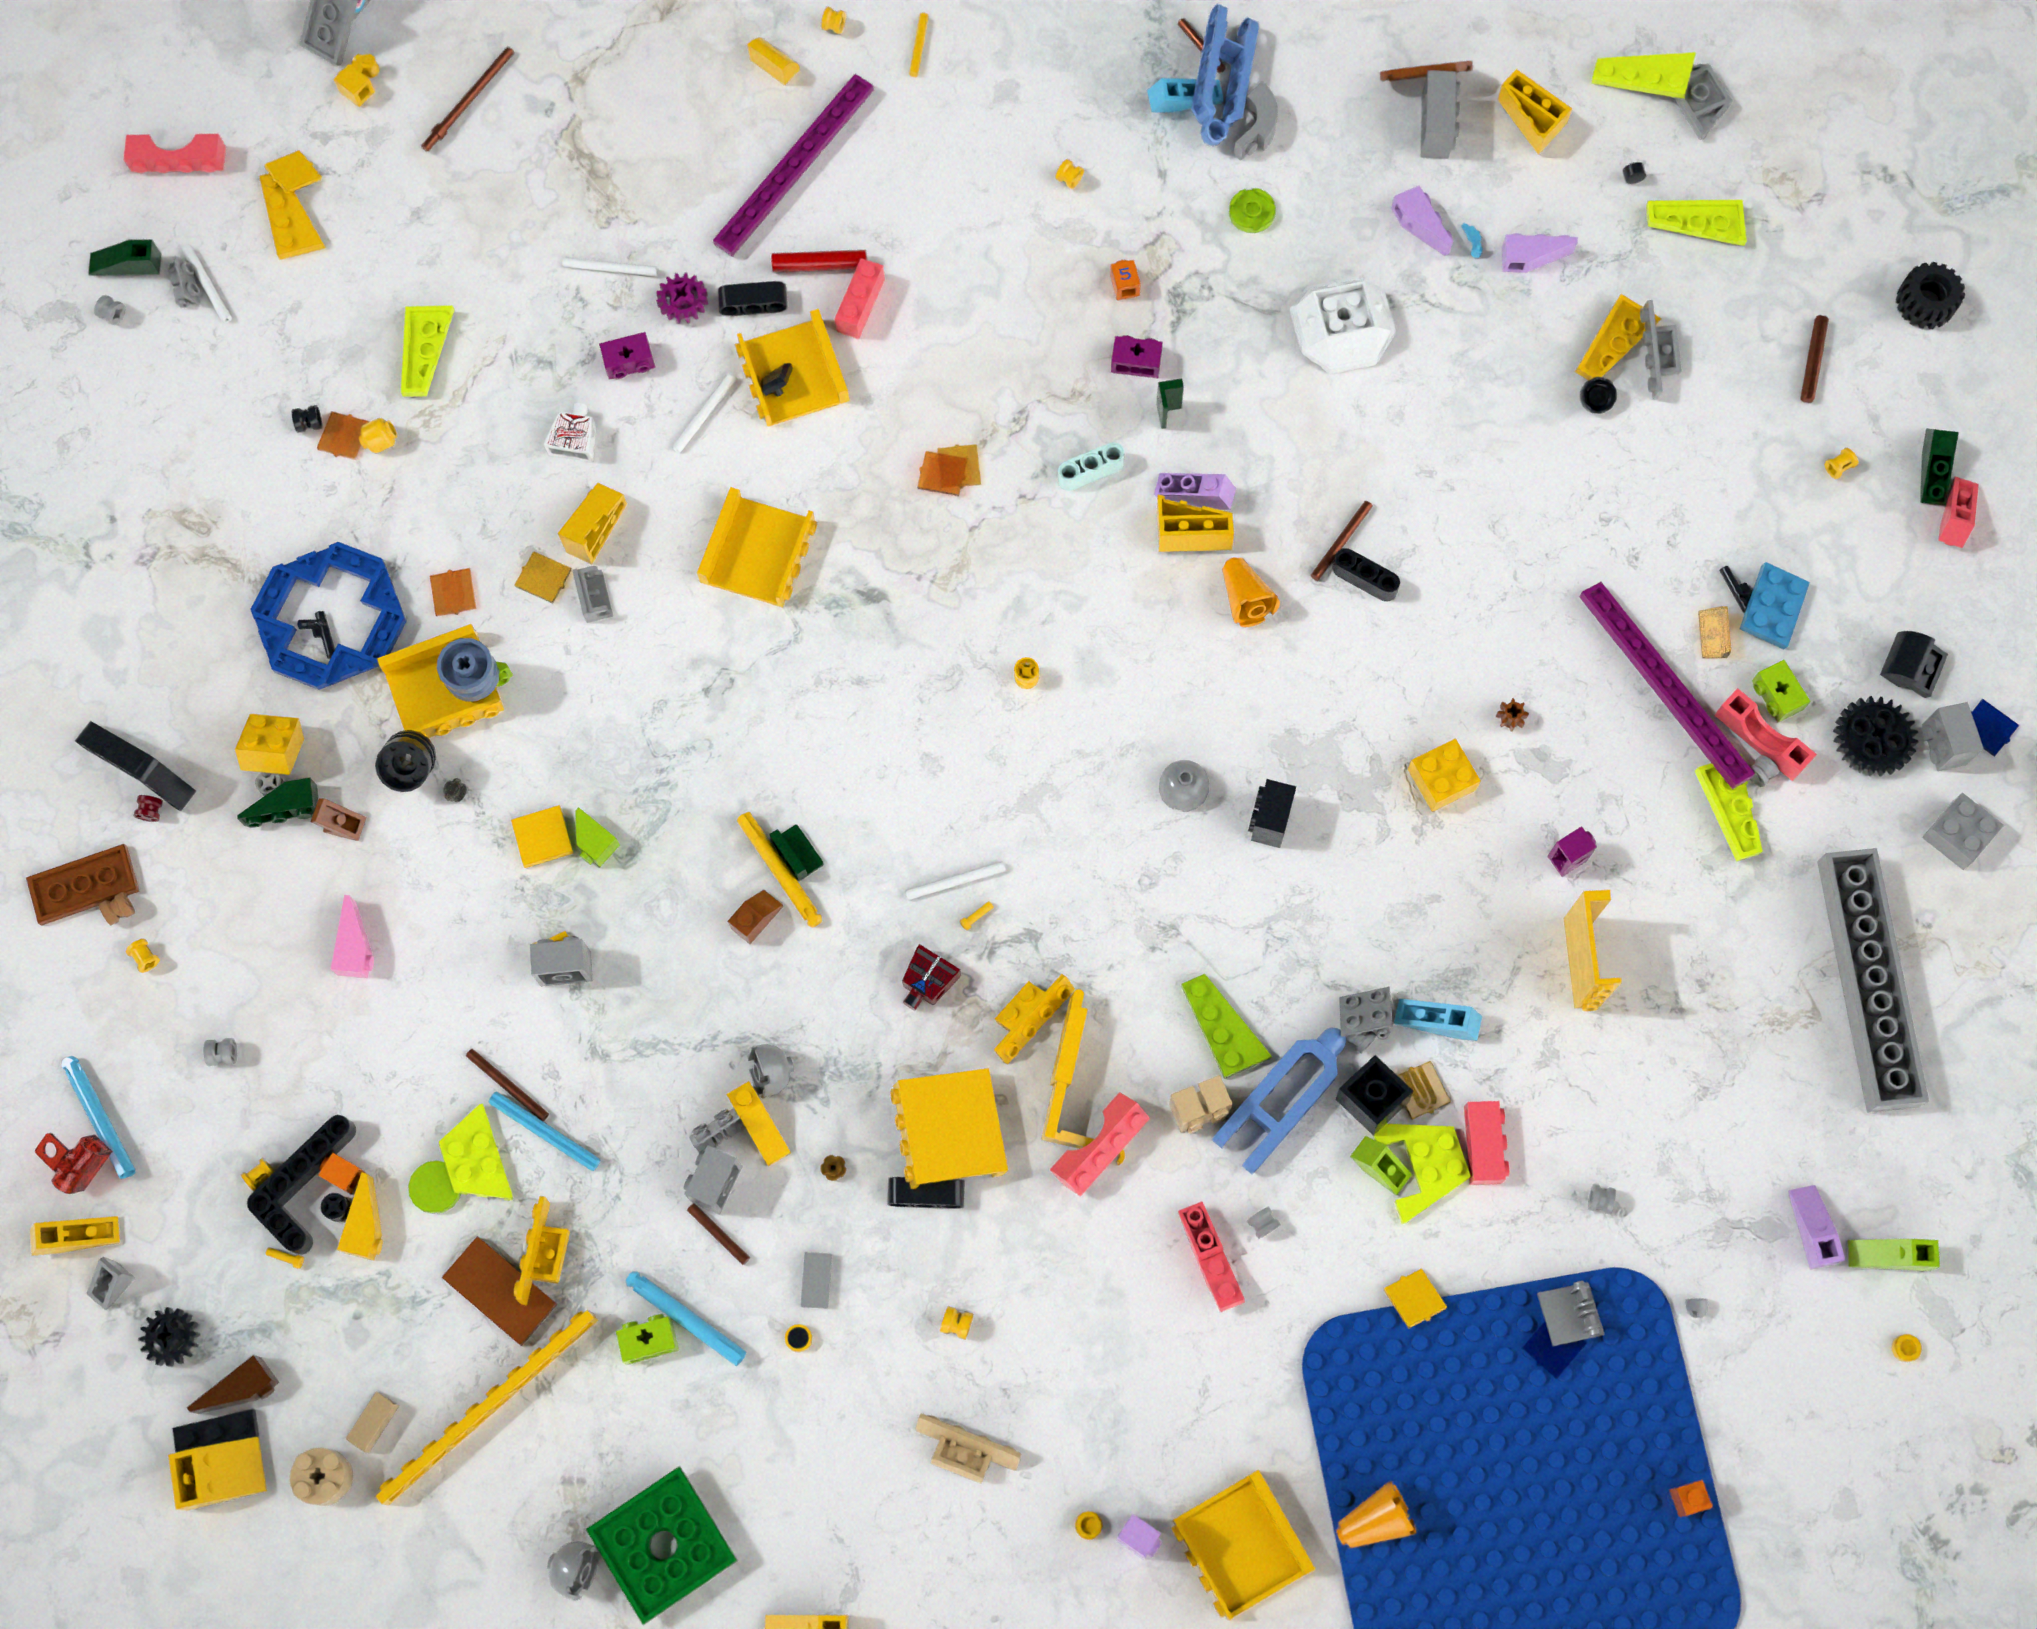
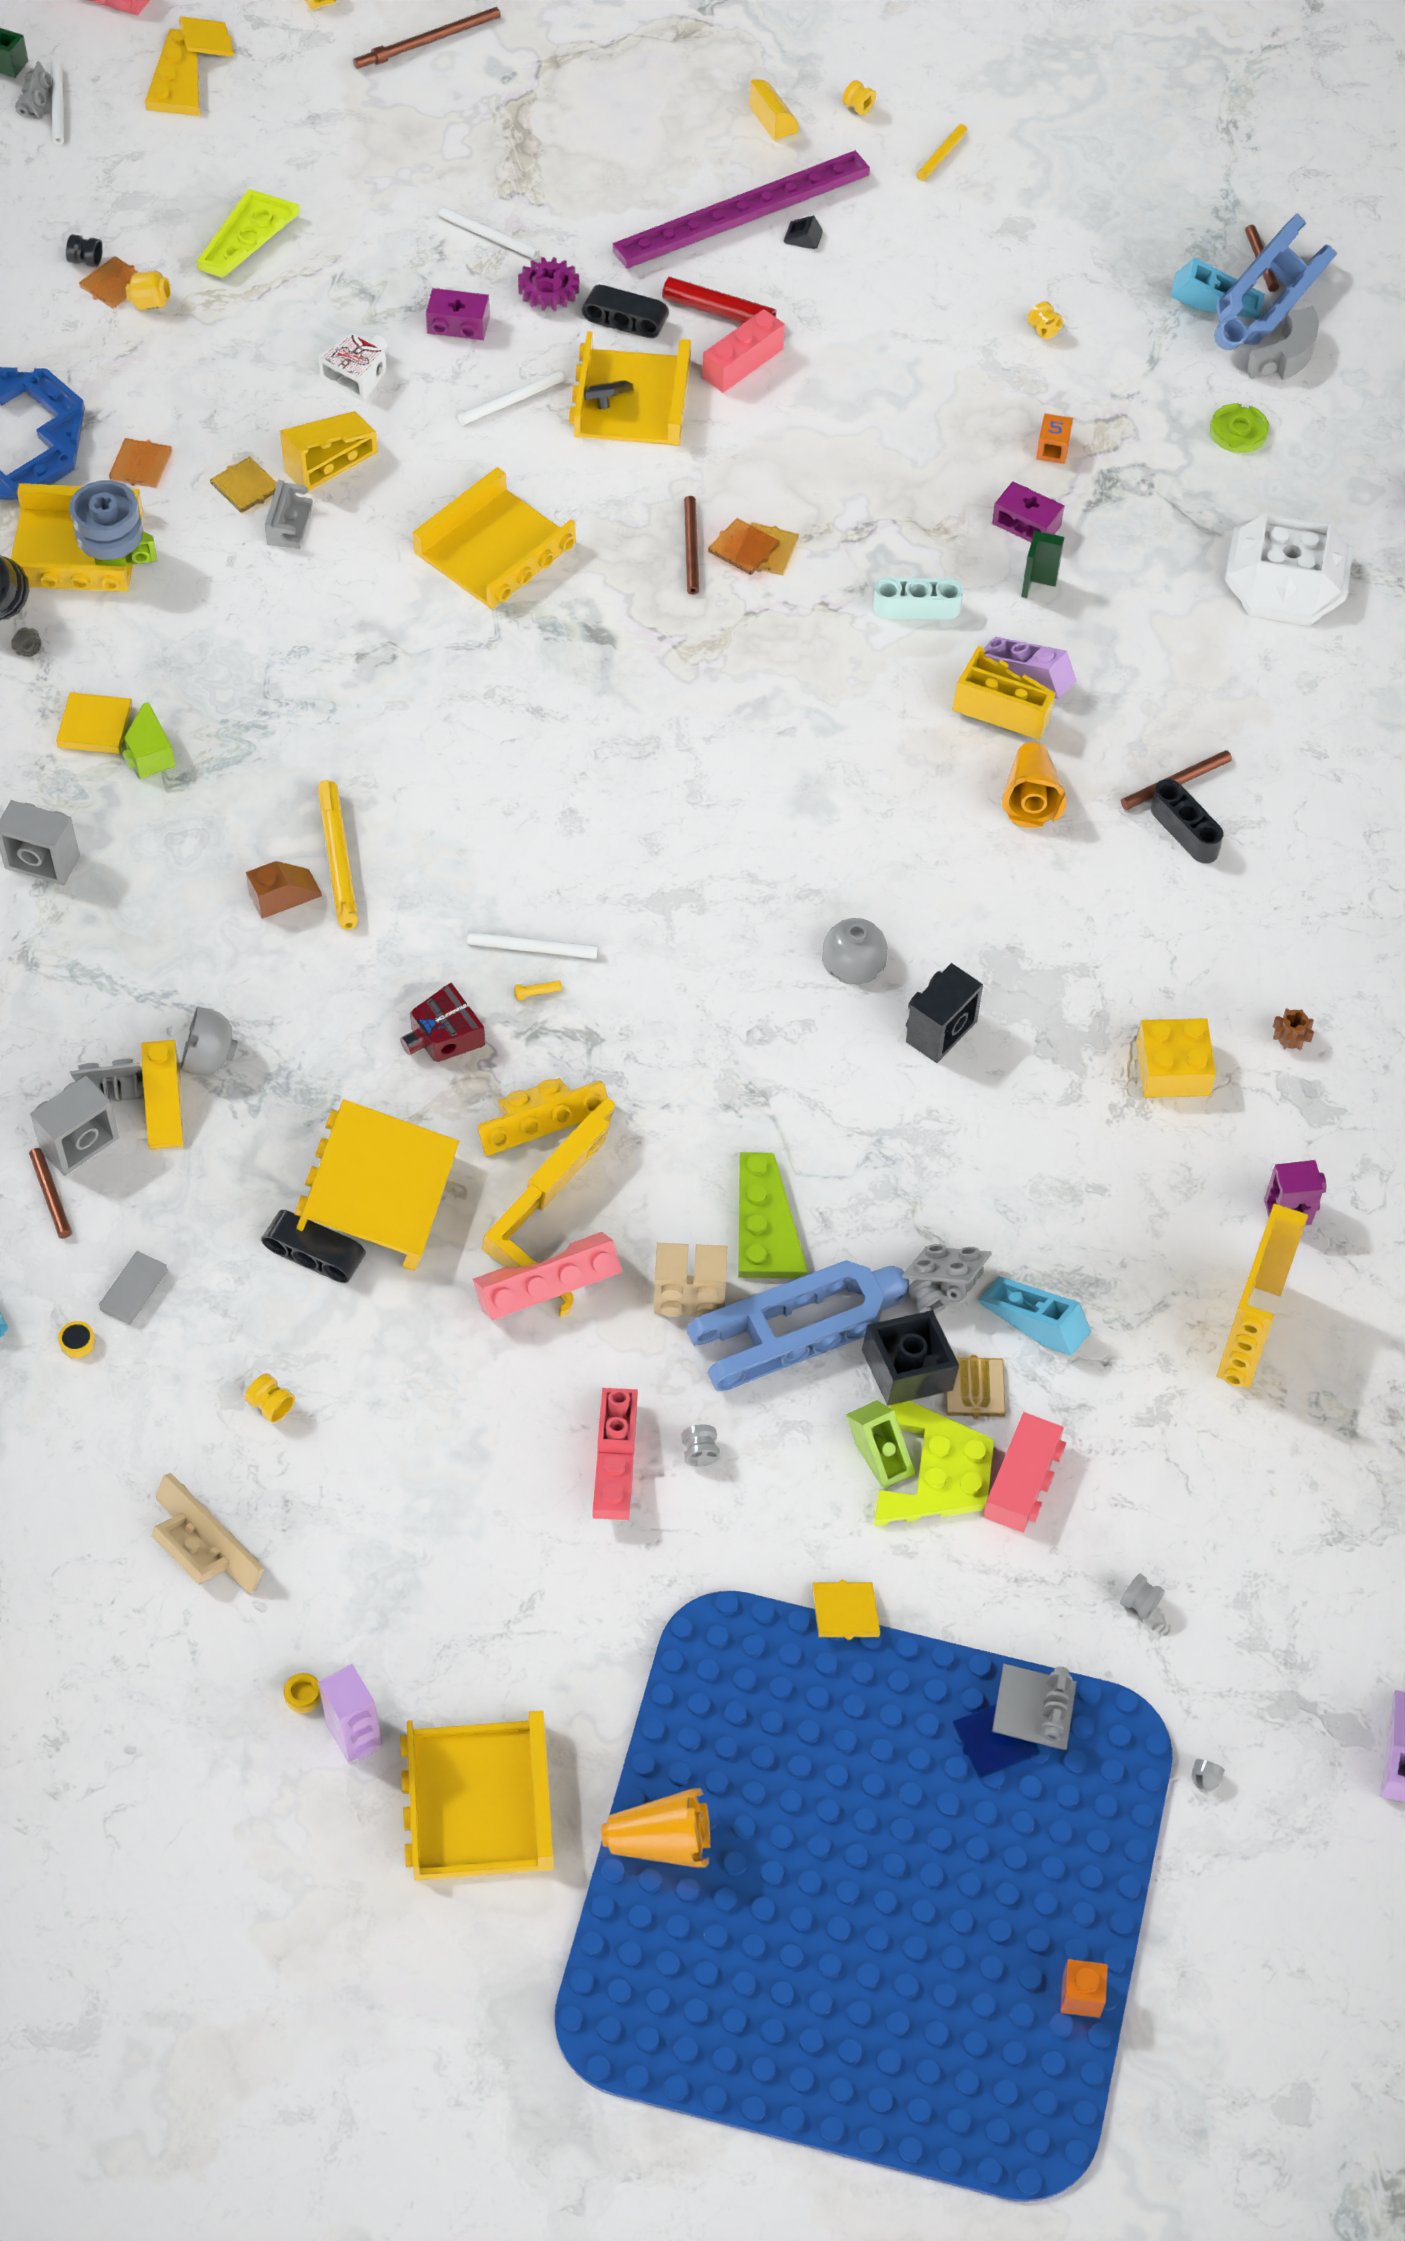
camera: 20 degrees right, 15 degrees down
(796, 851) = (367, 846): dark green panel -> none
(830, 1174) = (225, 1185): pearl gold plate -> none
(850, 165) = (804, 233): none -> black slope
(902, 488) = (691, 545): none -> copper piece
(1026, 668) = (730, 769): yellow wheel -> none

